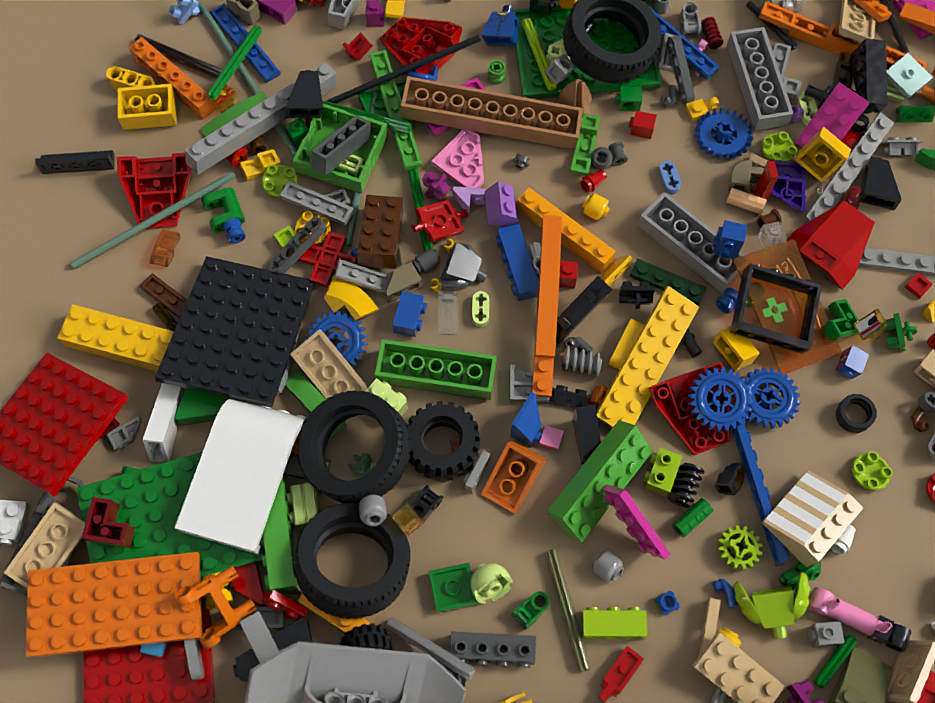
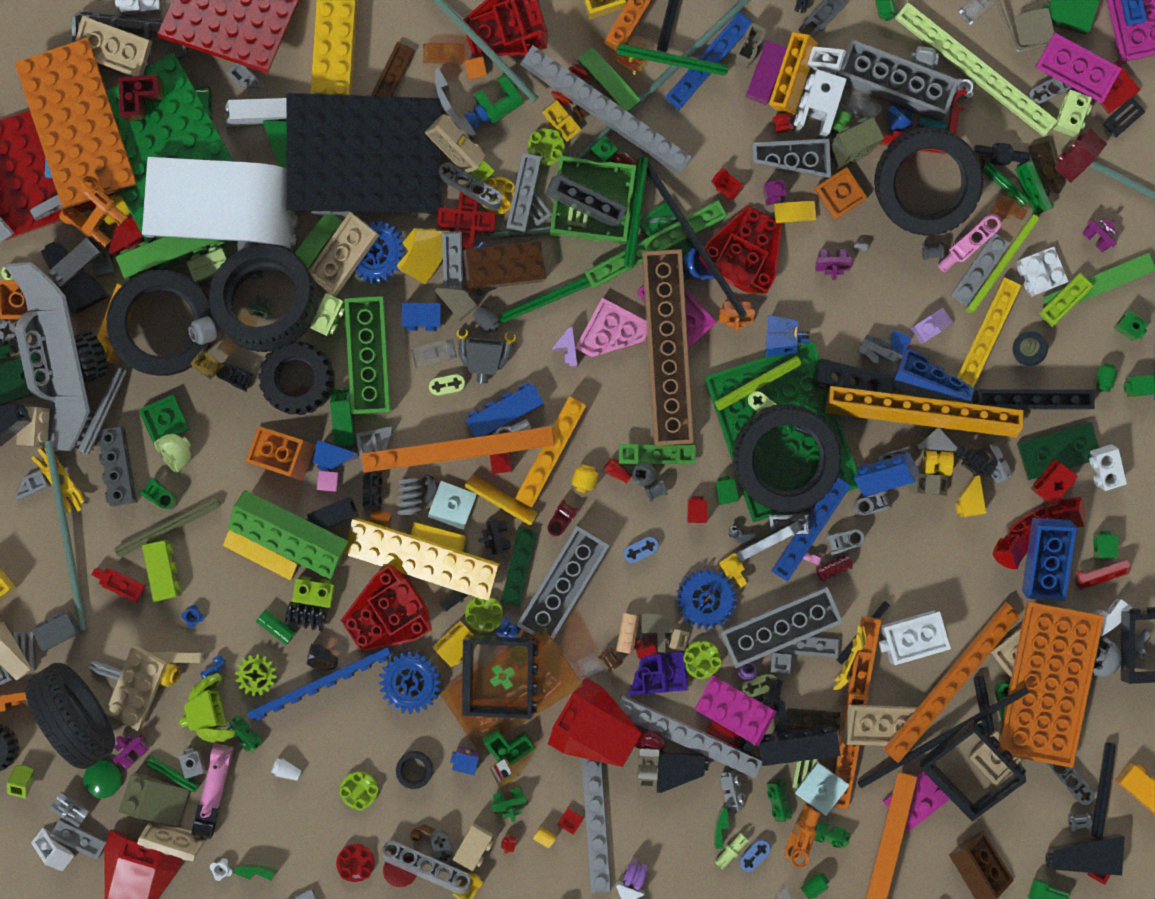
camera: 80 degrees right, 20 degrees up
(165, 316) = (369, 79): dark brown axle -> none
(187, 224) = (475, 67): none -> orange tile
(240, 243) = (442, 85): none -> light grey slope
(254, 249) = (455, 143): none -> tan slope
(280, 602) = (110, 265): red plate -> none
(305, 97) = (632, 149): black slope -> none
(437, 188) = (570, 308): magenta hips -> none
(439, 220) = (532, 322): red plate -> none
(473, 478) = (268, 414): light grey plate -> none
(477, 62) = (731, 317): none -> orange hips
(491, 405) = (342, 419): none -> green slope
(496, 72) = (728, 345): bright green wheel -> none
(501, 205) = (558, 382): medium lavender slope -> none
(521, 161) = (624, 391): dark grey plate -> none
(560, 69) = (731, 405): light grey brick -> none
(577, 95) = (712, 433): medium nougat hat -> none
(581, 307) = (460, 483): black hinge -> none
(599, 329) = (452, 505): none -> light aqua plate
(608, 566) = (212, 556): light grey head -> none
(609, 523) = (260, 555): none -> yellow slope
(627, 233) = (562, 517): none -> dark red piece
(636, 523) = (248, 572): dark pink plate -> none
(709, 320) = (484, 614): none -> lime dish
(720, 418) = (407, 633): blue gear -> none
(729, 239) = (555, 618): blue brick -> none
(805, 37) = (858, 644): none -> yellow piece
(811, 517) = (295, 737): tan slope -> none
(822, 154) = (691, 704): yellow brick -> none
(876, 208) = (647, 768): none -> dark tan brick

